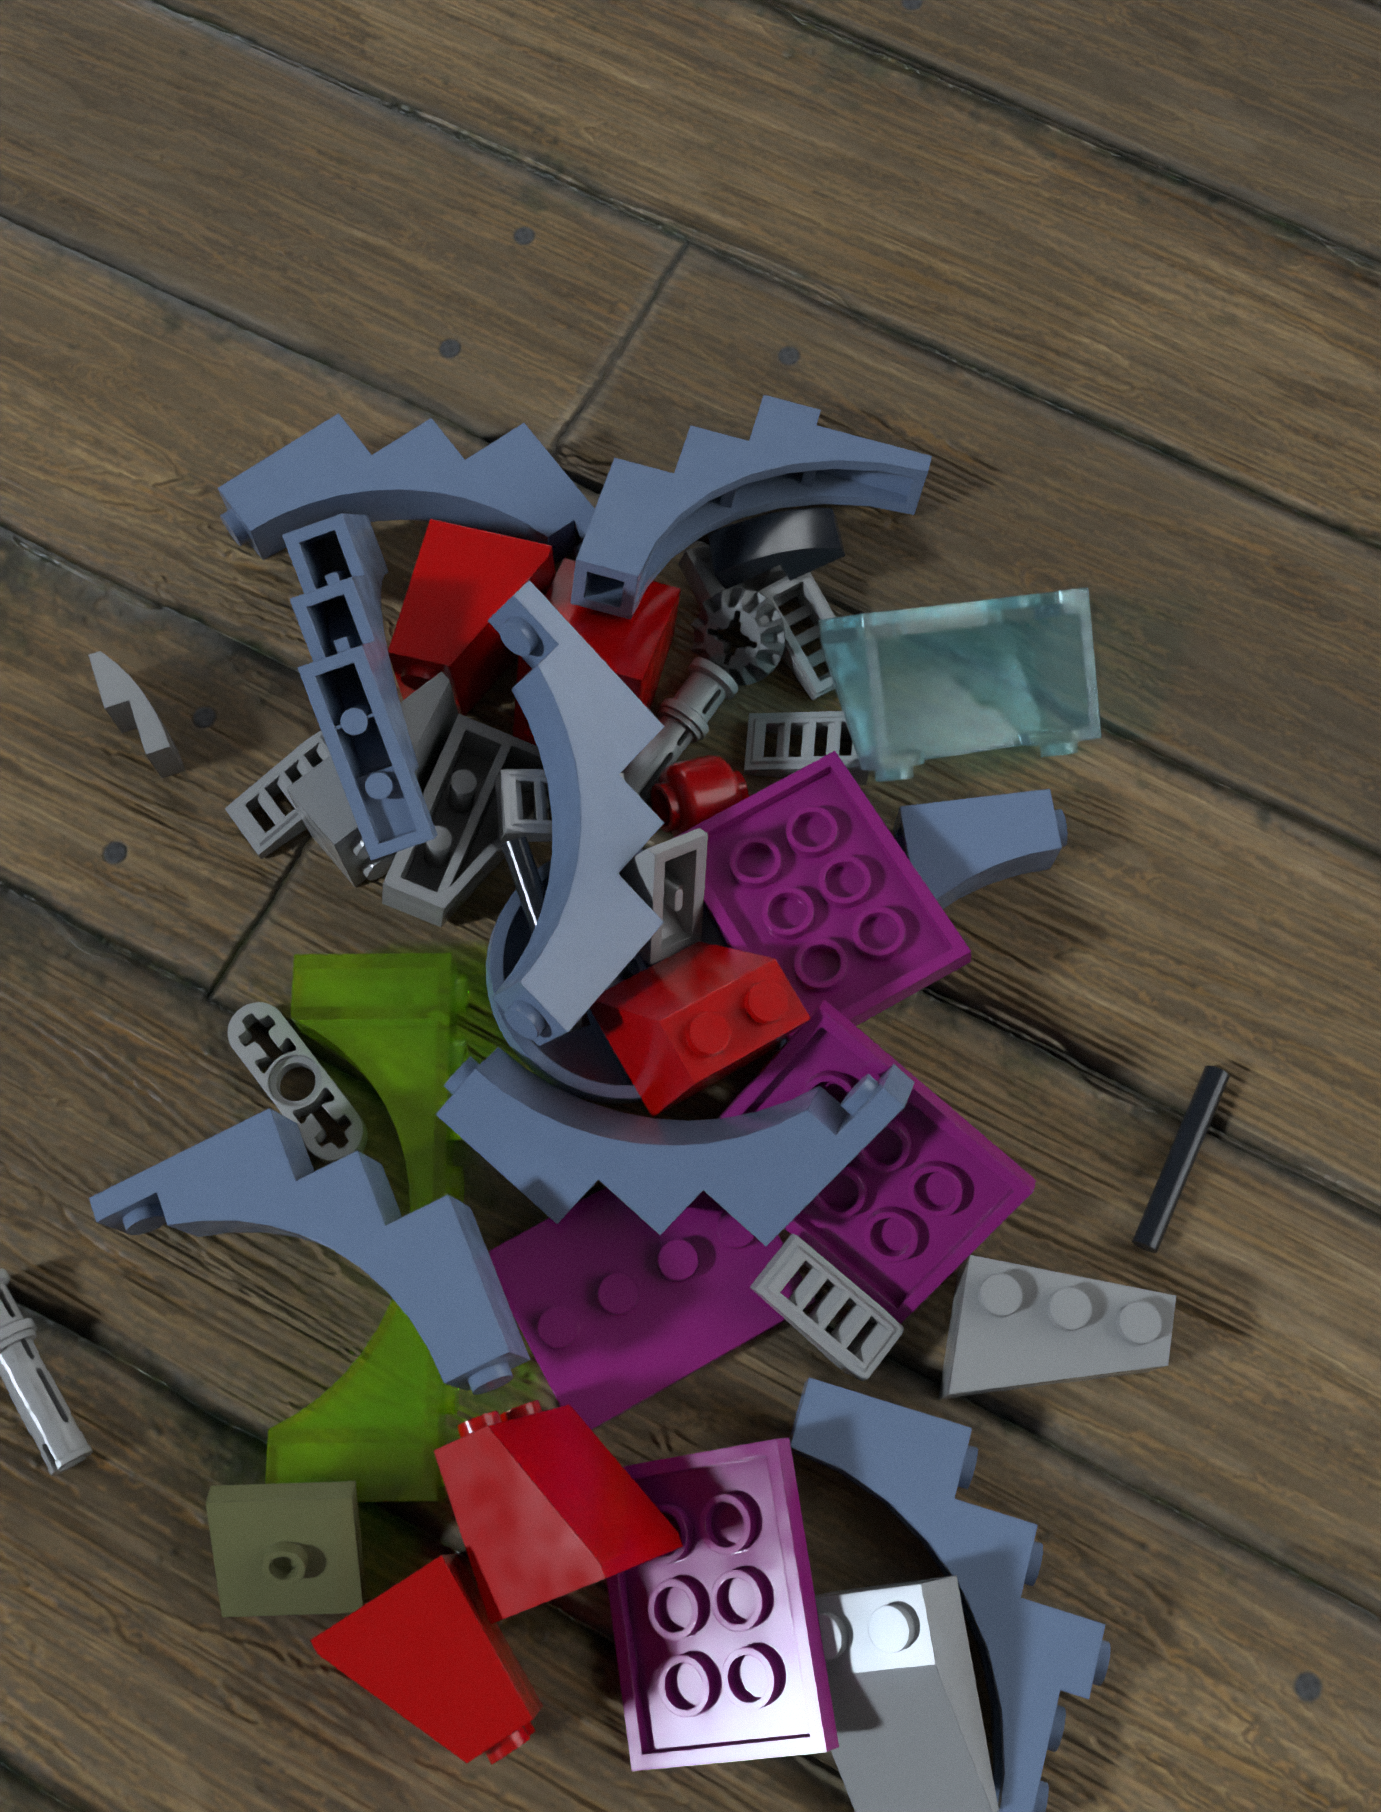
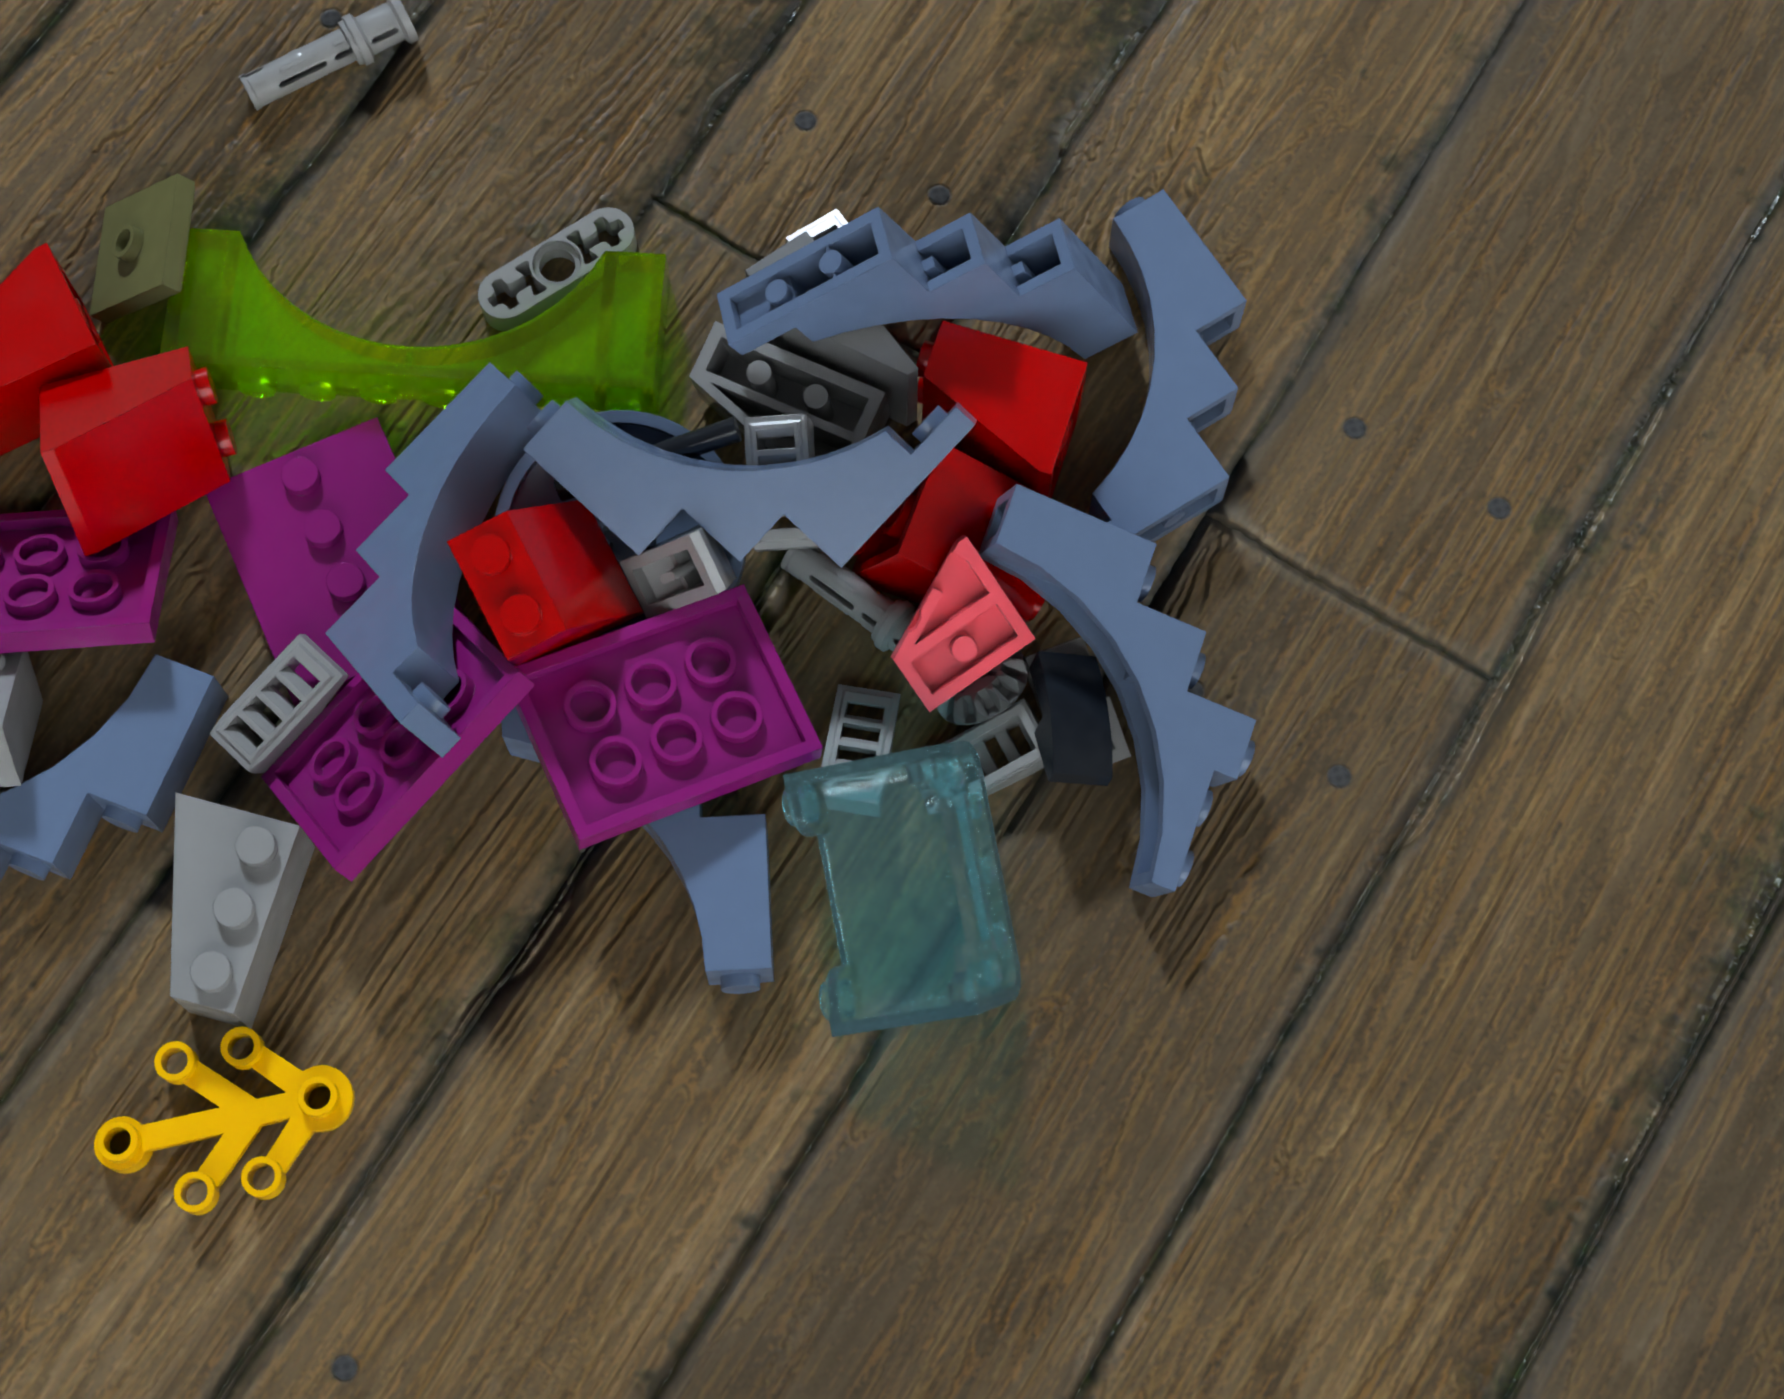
camera: 95 degrees right, 0 degrees up
(132, 710) = (951, 119): light grey slope -> none
(264, 1182) = (347, 346): sand blue arch -> none
(695, 792) = (805, 630): red head -> none
(704, 635) = (958, 629): none -> coral wing
(1180, 1159) = (387, 1070): black bar -> none
(1258, 1299) = (235, 1119): none -> yellow plant

